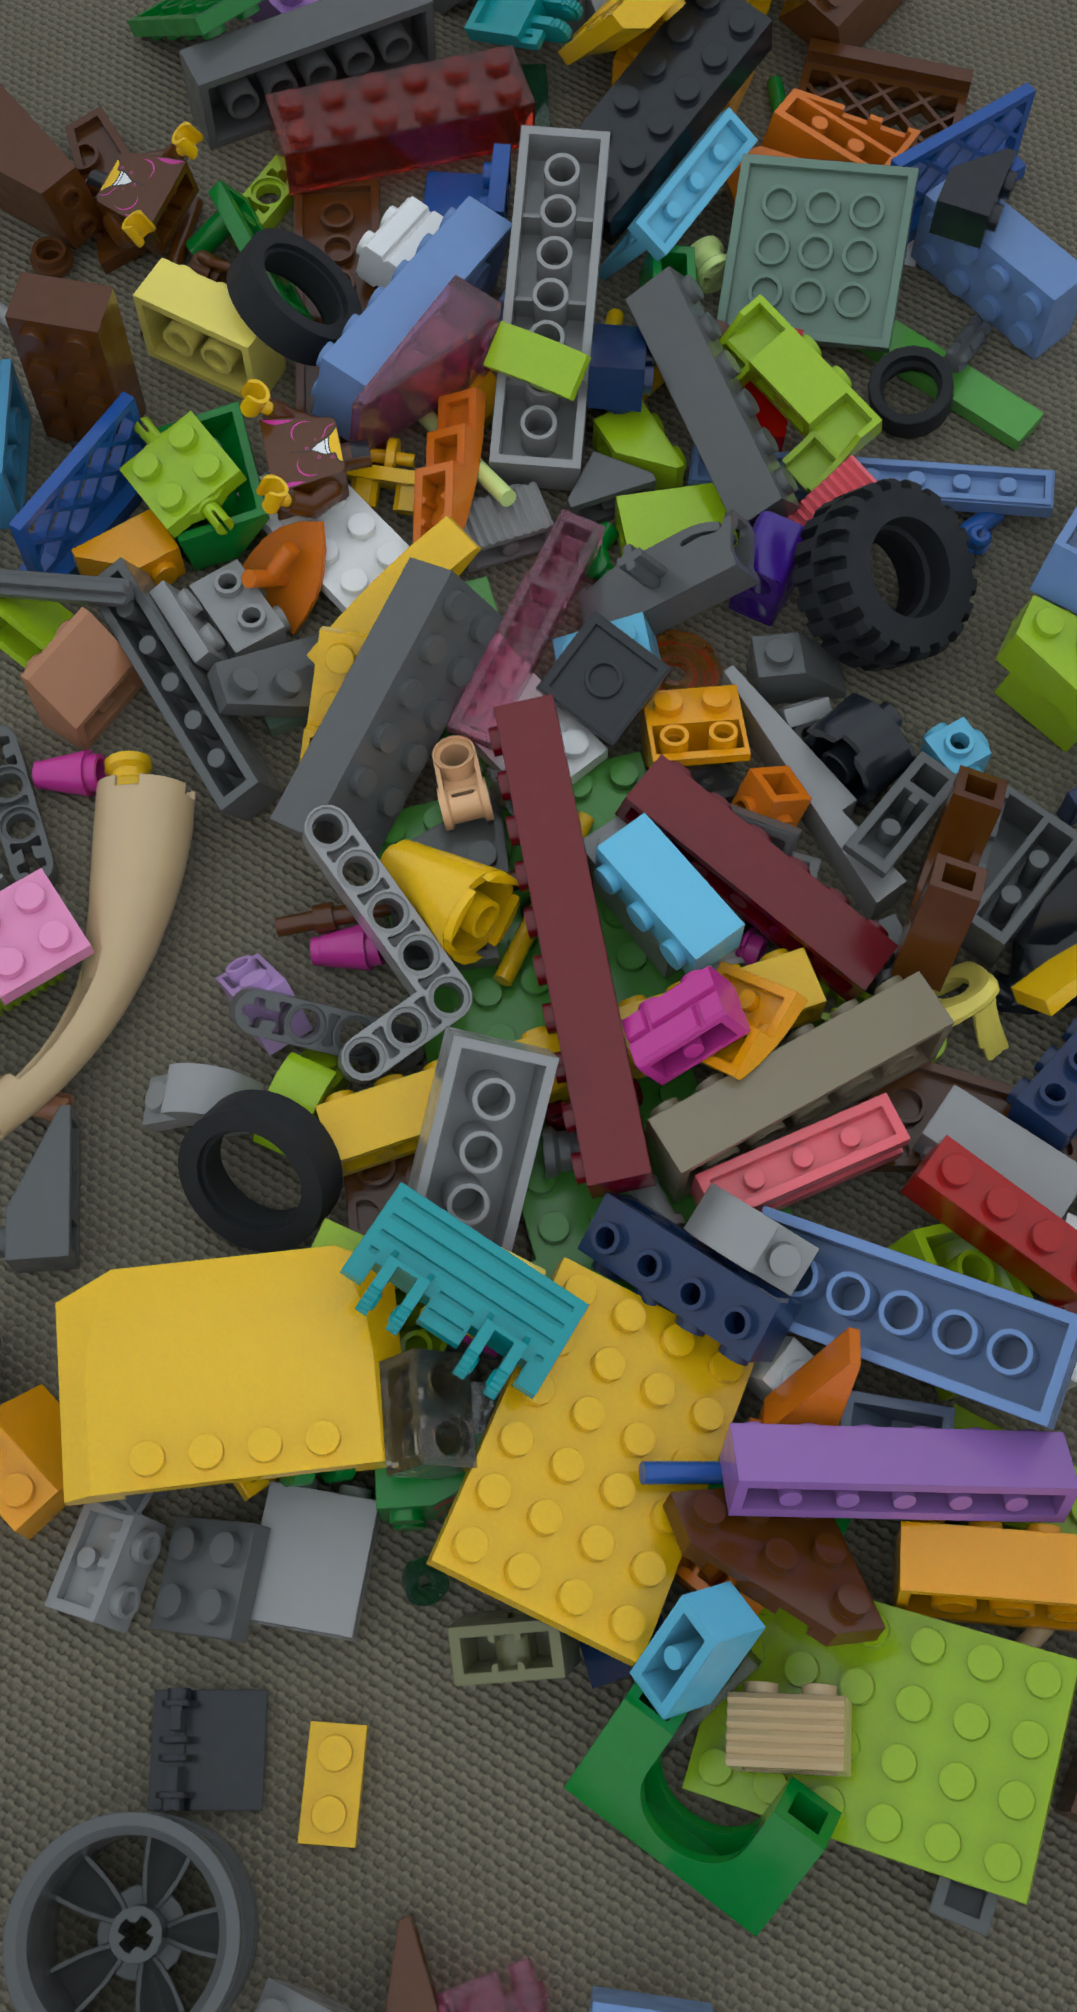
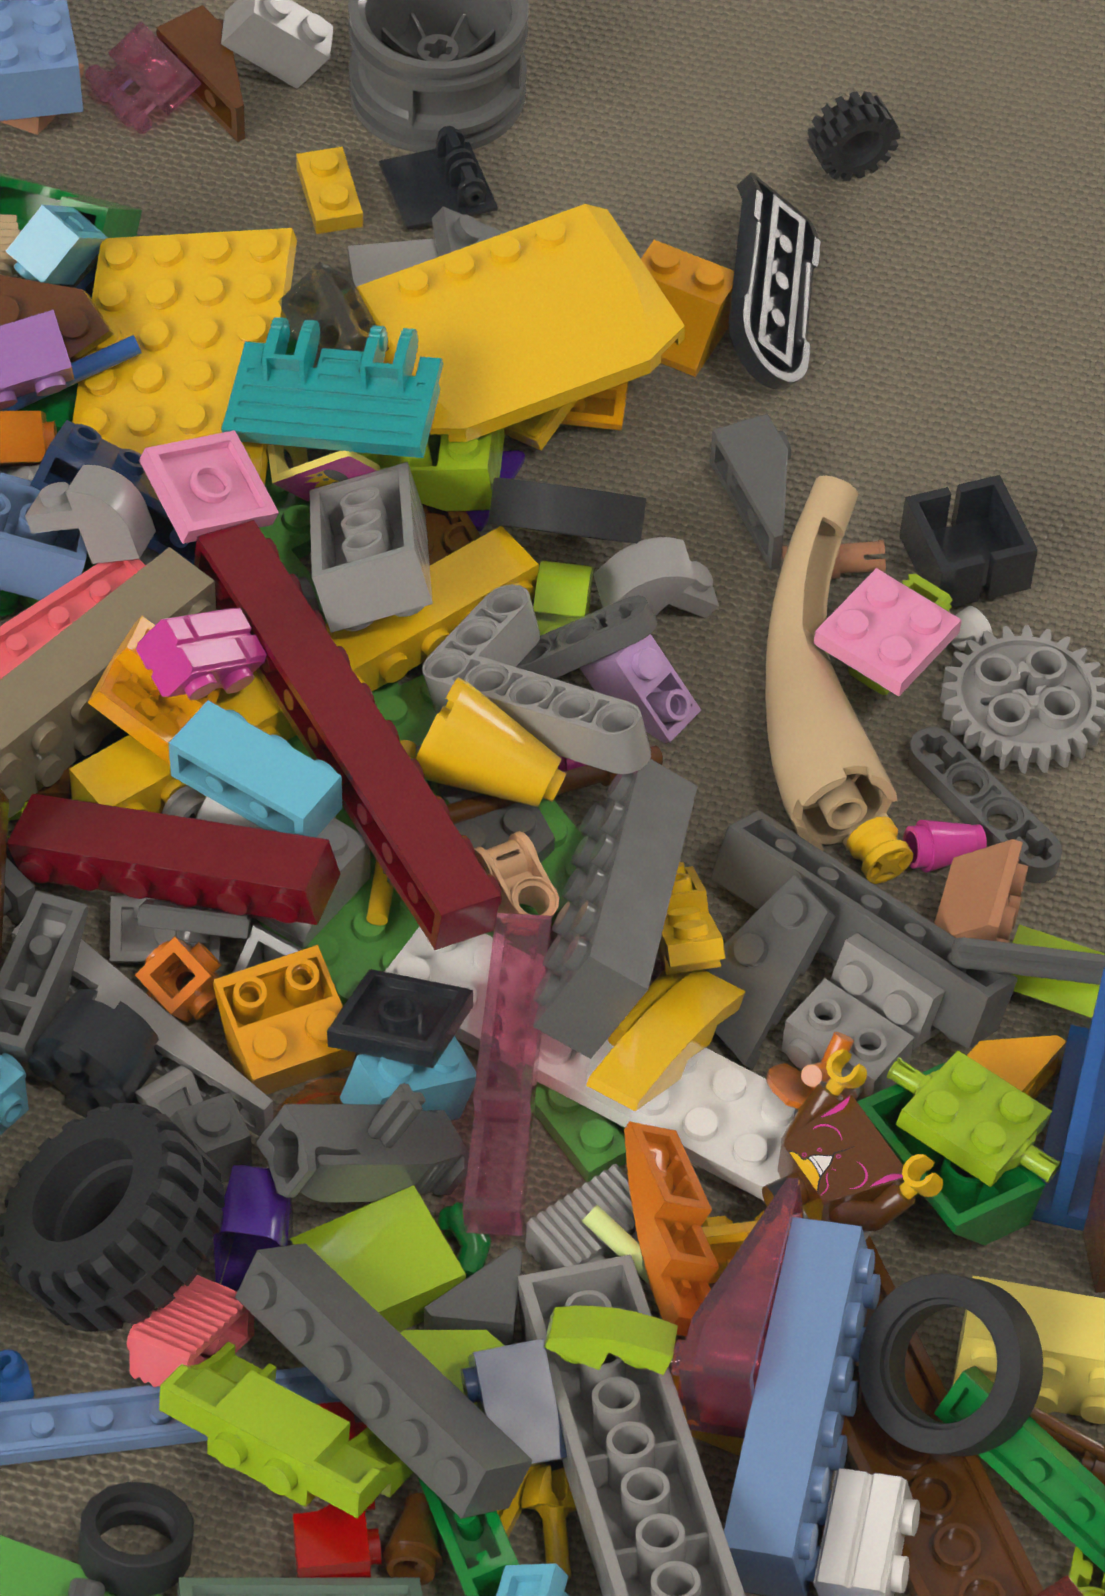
camera: 160 degrees right, 15 degrees down
(622, 1233) = (207, 485): none -> bright pink plate

